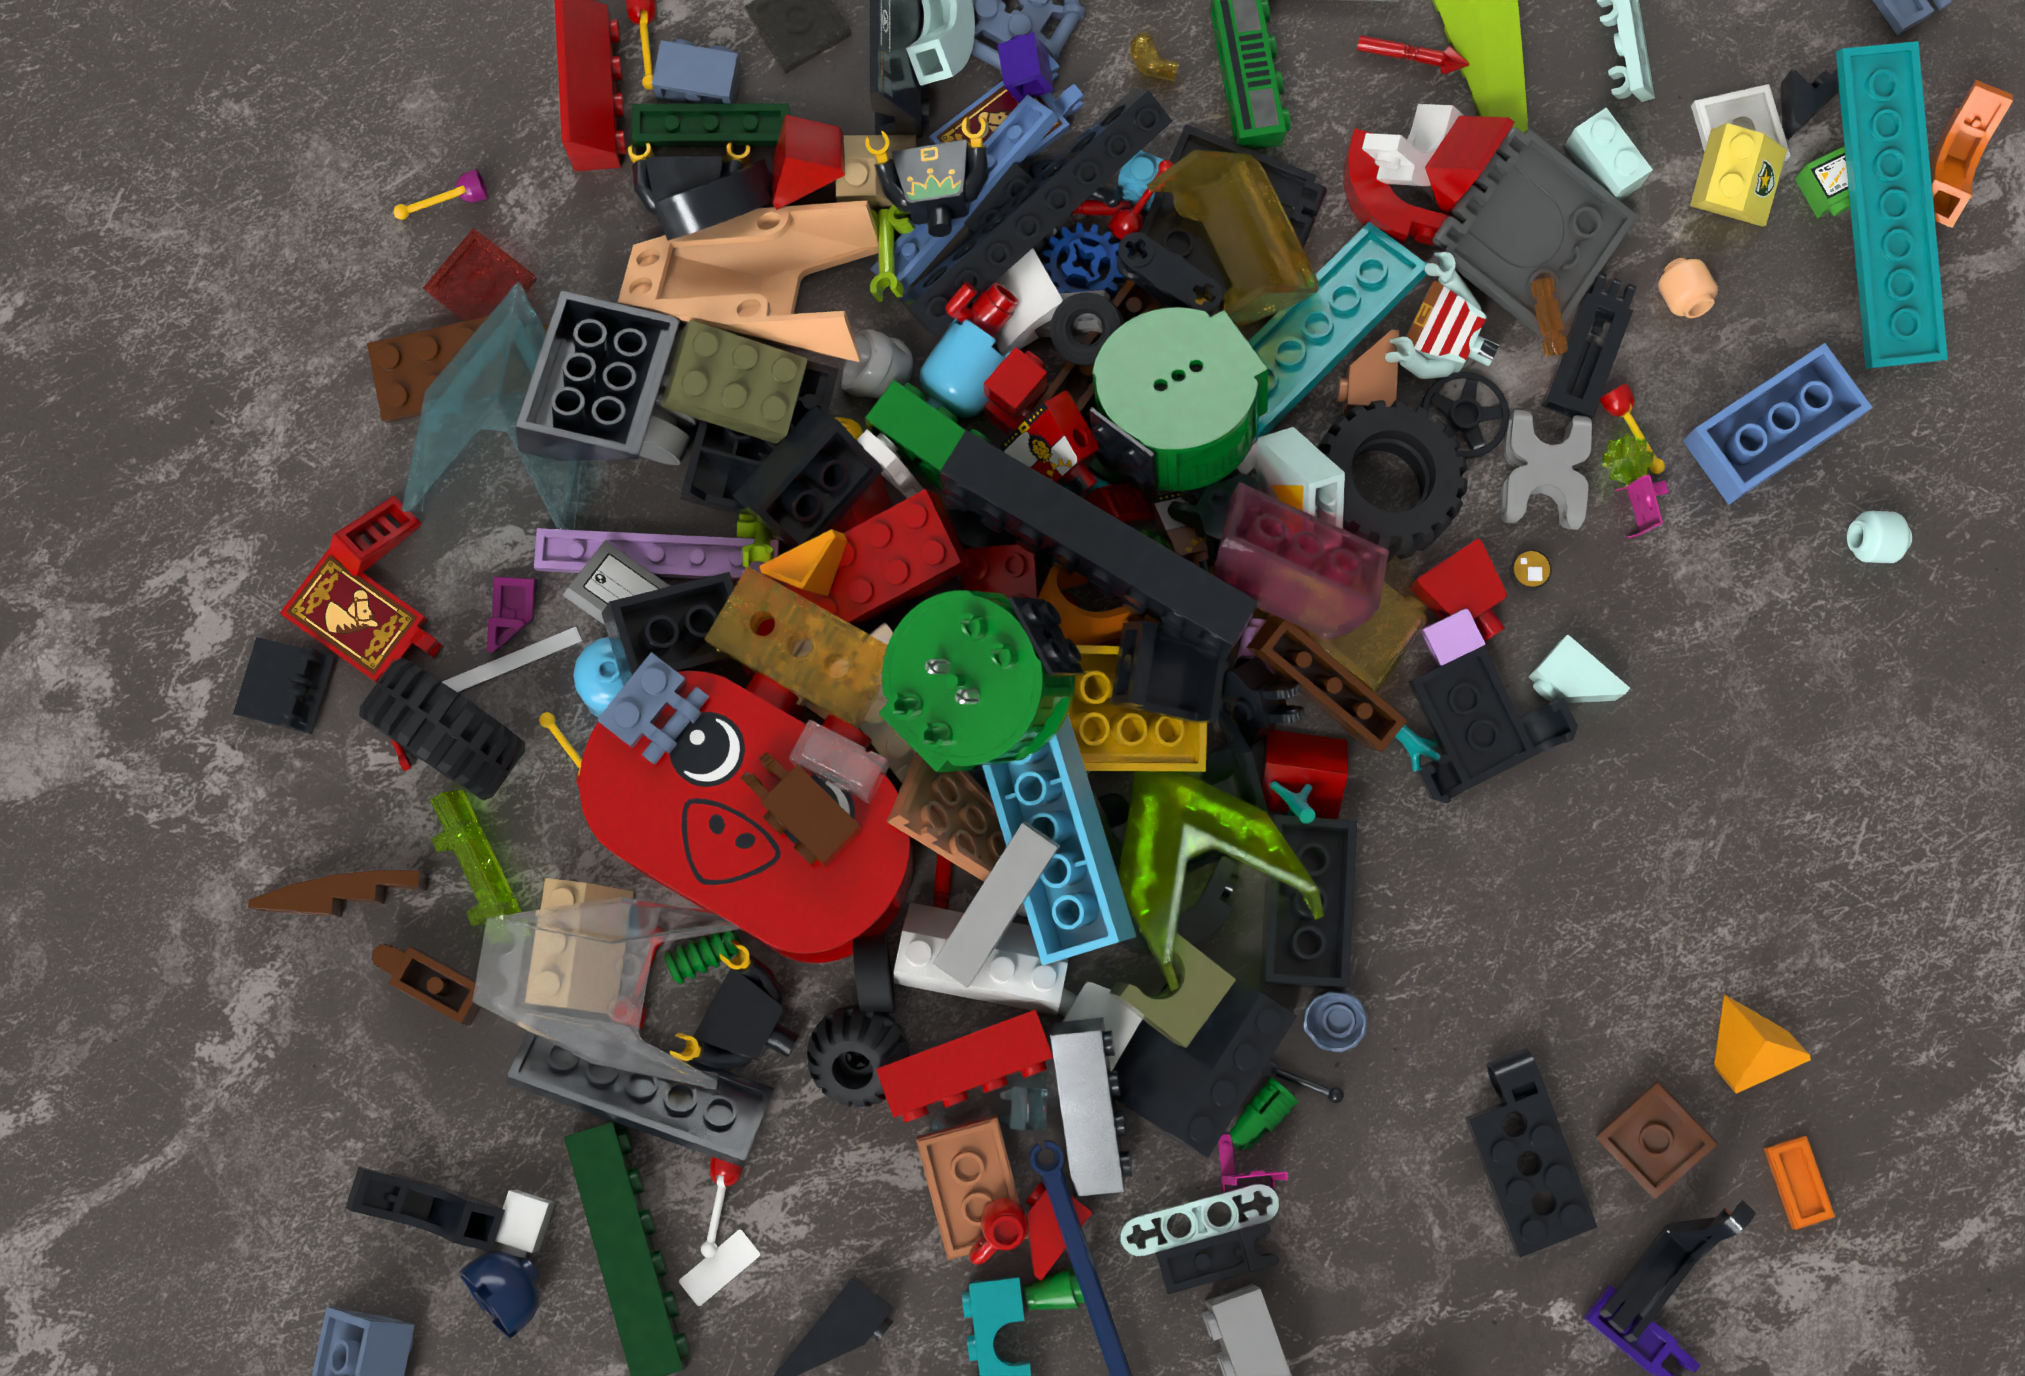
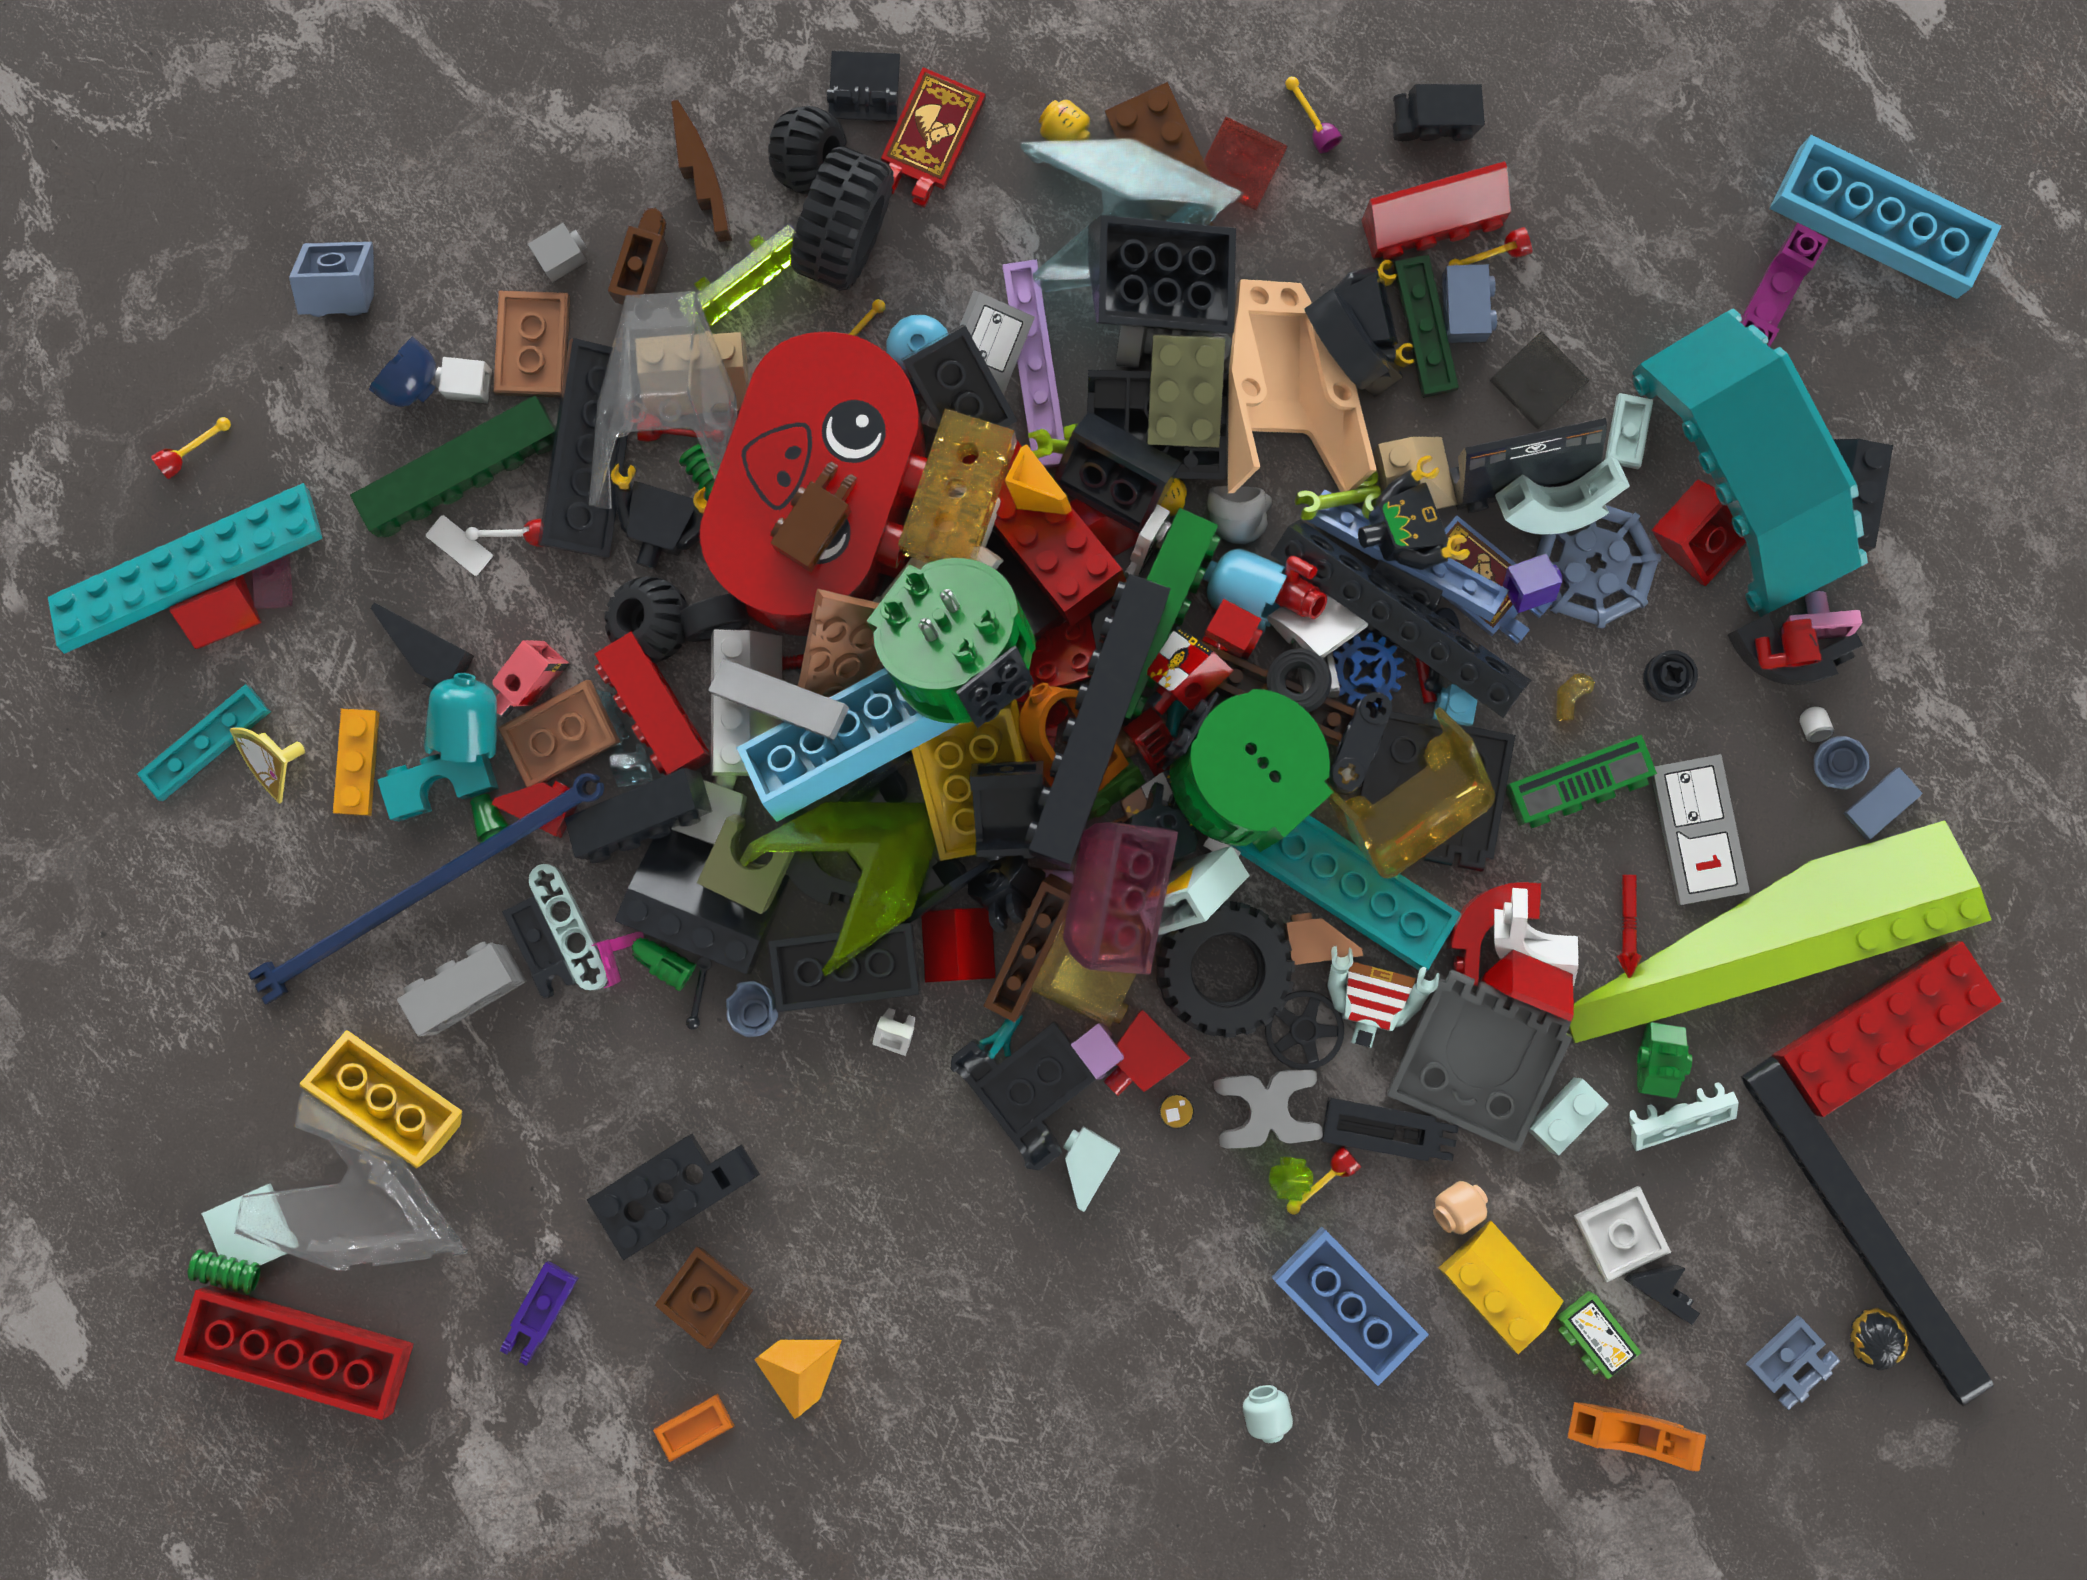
camera: 85 degrees right, 5 degrees up
(344, 763) = (801, 144): none -> black wheel
(355, 552) = (986, 128): red slope -> none
(386, 466) = (1064, 122): none -> yellow head
(395, 1078) = (559, 251): none -> light grey brick
(426, 1207) = (462, 306): black arch -> none
(475, 59) = (1439, 112): none -> black hinge
(497, 1134) = (531, 343): none -> nougat tile
(511, 609) = (967, 255): magenta slope -> none
(514, 660) = (921, 264): white sticker -> none
(642, 702) = (882, 369): sand blue plate -> none
(805, 159) = (1406, 412): red slope -> none
(839, 761) = (860, 539): clear brick -> none
(886, 1200) = (527, 675): none -> coral torso
(935, 1296) = (461, 719): none -> teal cylinder
(1003, 1229) = (527, 764): red piece -> none
(1129, 218) = (1415, 702): red hinge -> none
(1297, 802) = (926, 941): teal bar -> none
(1392, 864) = (893, 1034): none -> white tile
(1549, 316) = (1404, 1086): clear orange axle -> none
(1565, 46) = (1662, 1060): none -> green hinge
(1644, 502) = (1267, 1198): dark pink piece -> none
(1666, 1265) = (594, 1319): black hinge -> none
(1739, 174) = (1574, 1237): light yellow slope -> none
(1780, 263) = (1502, 1287): none -> yellow slope
(1891, 204) = (1573, 1376): teal plate -> none

